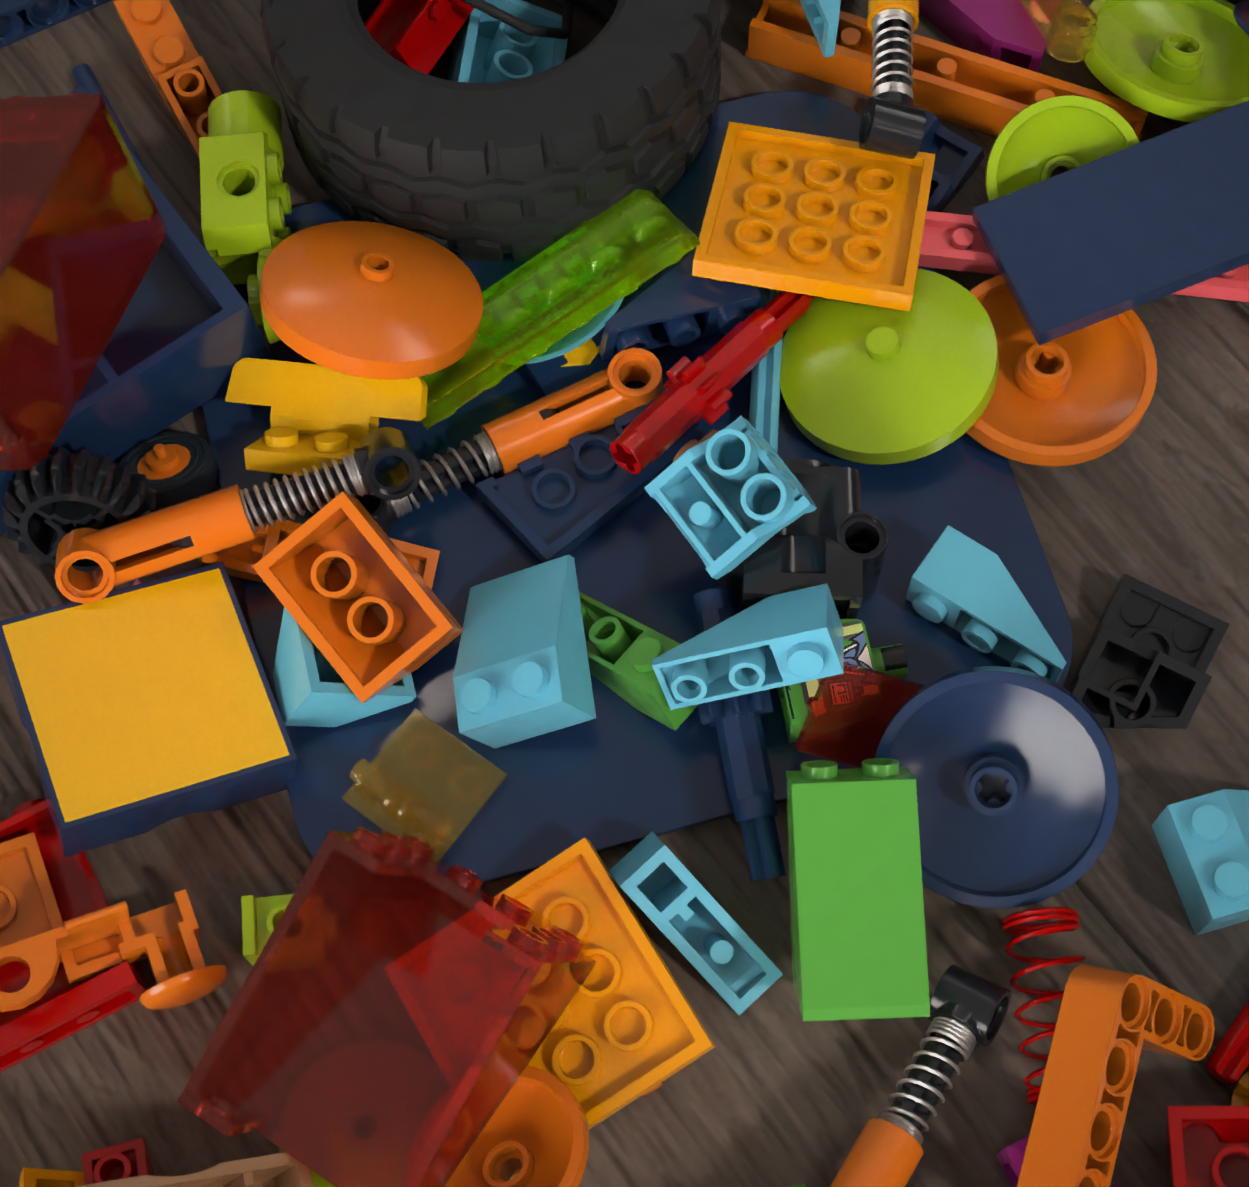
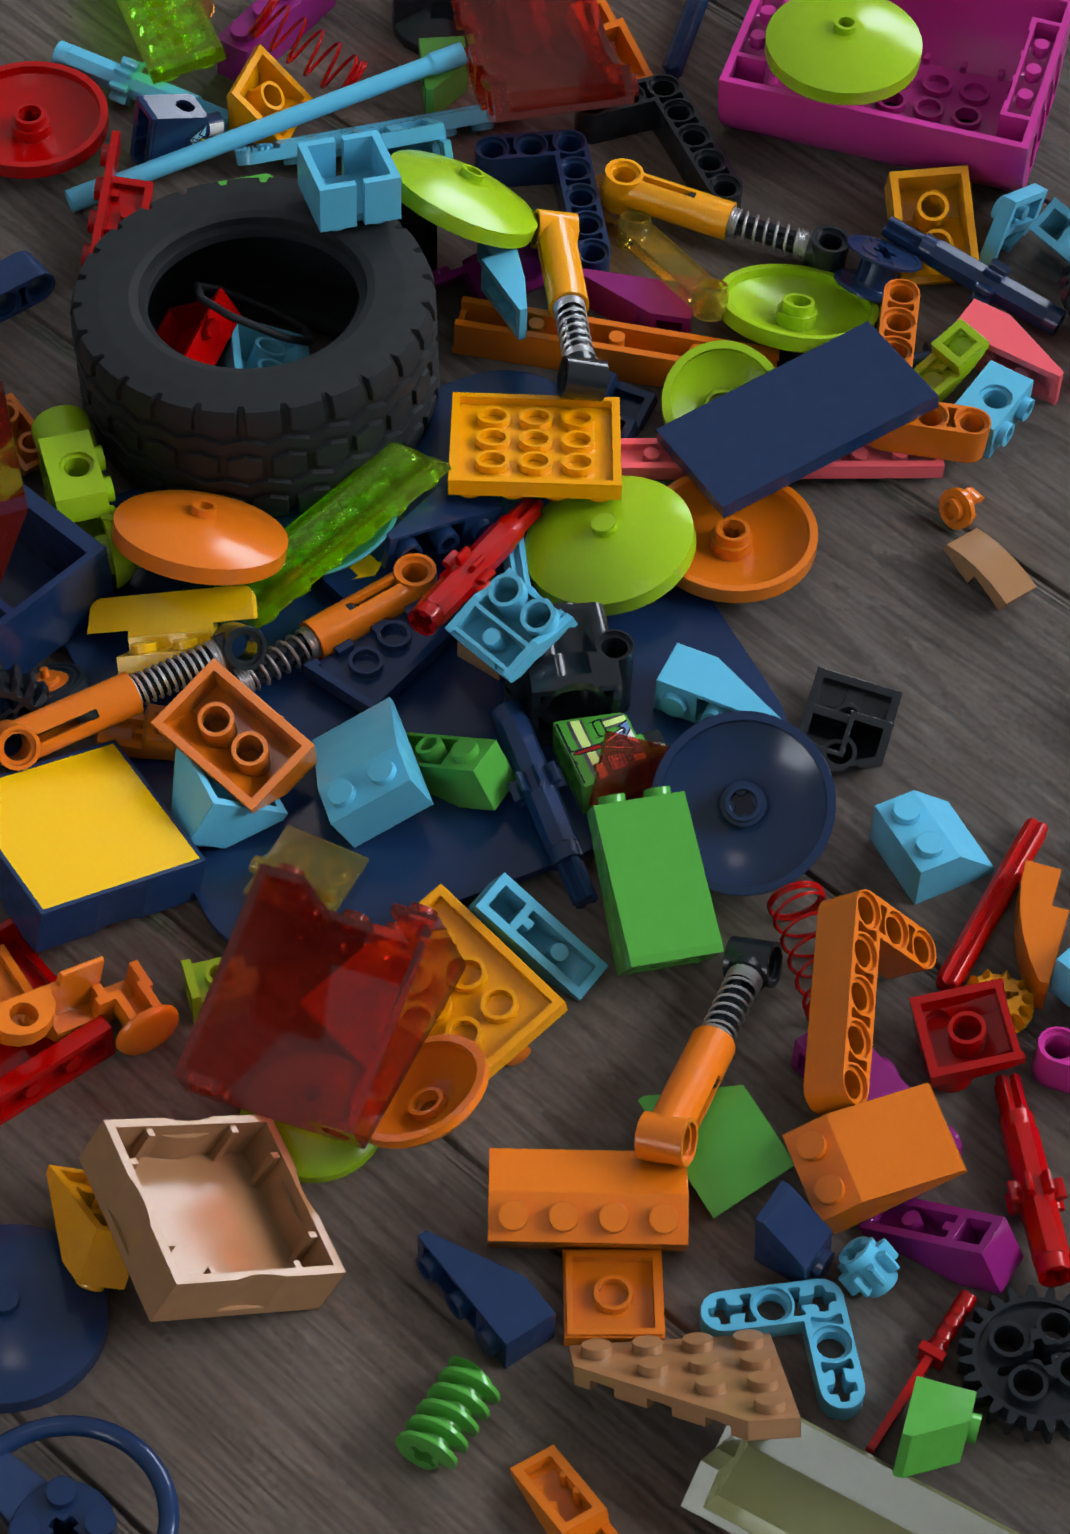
camera: 15 degrees left, 15 degrees down
(759, 649) = (547, 732): medium azure slope -> none

